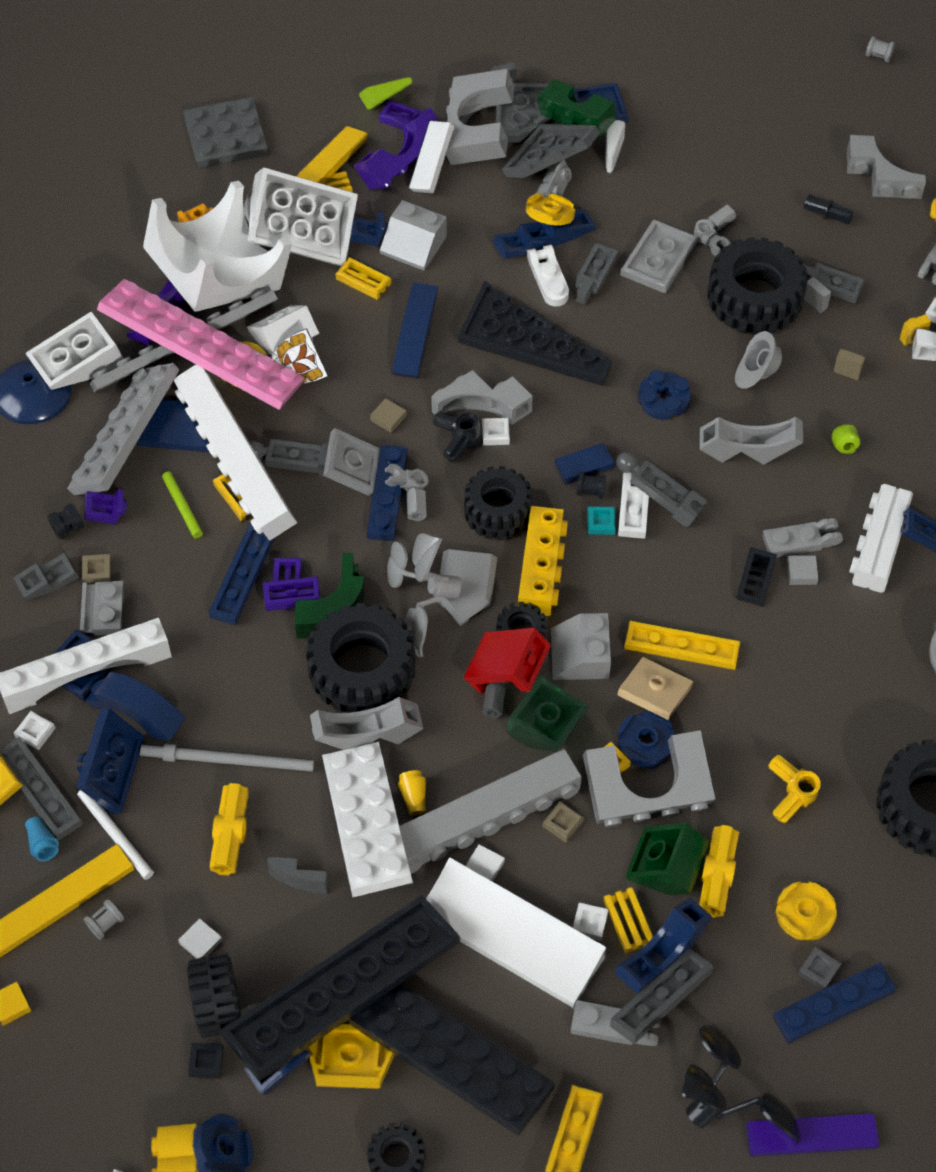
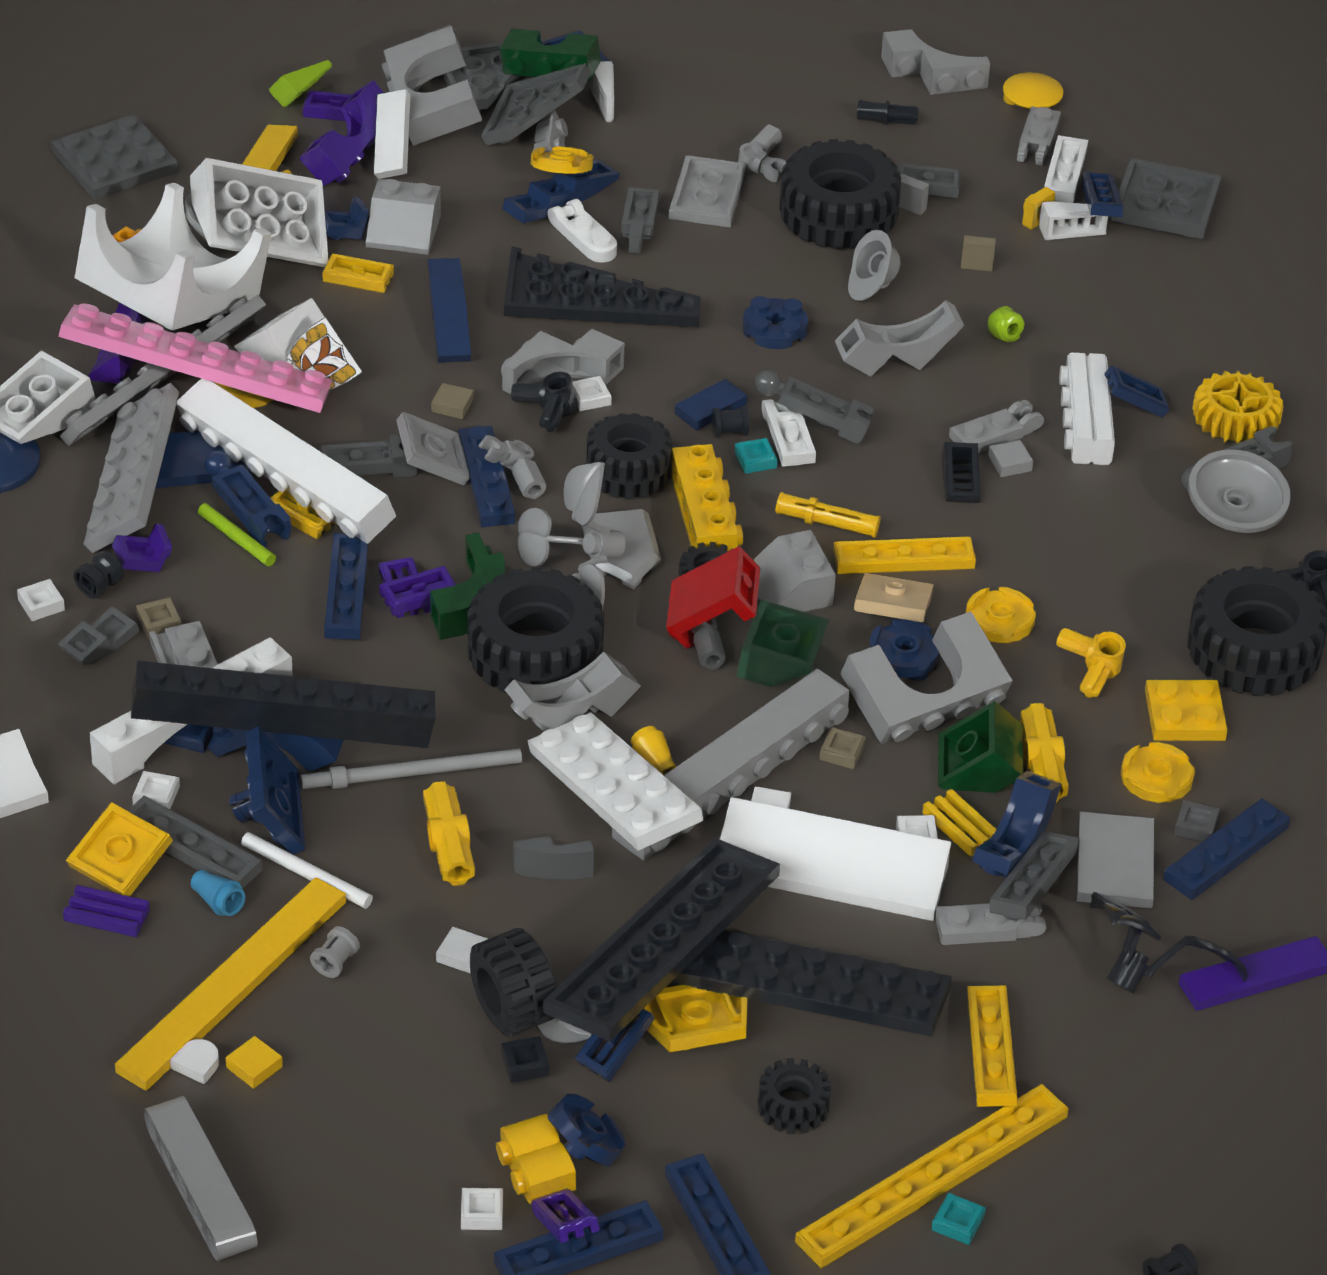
camera: 20 degrees left, 15 degrees down
(19, 532) = (40, 600): none -> white tile
(130, 695) = (283, 704): none -> black brick
(197, 475) = (247, 499): none -> dark blue plate
(608, 577) = (827, 514): none -> yellow pin
(737, 722) = (1002, 614): none -> yellow tile
(739, 990) = (1116, 858): none -> light grey tile
(852, 855) = (1185, 710): none -> yellow plate

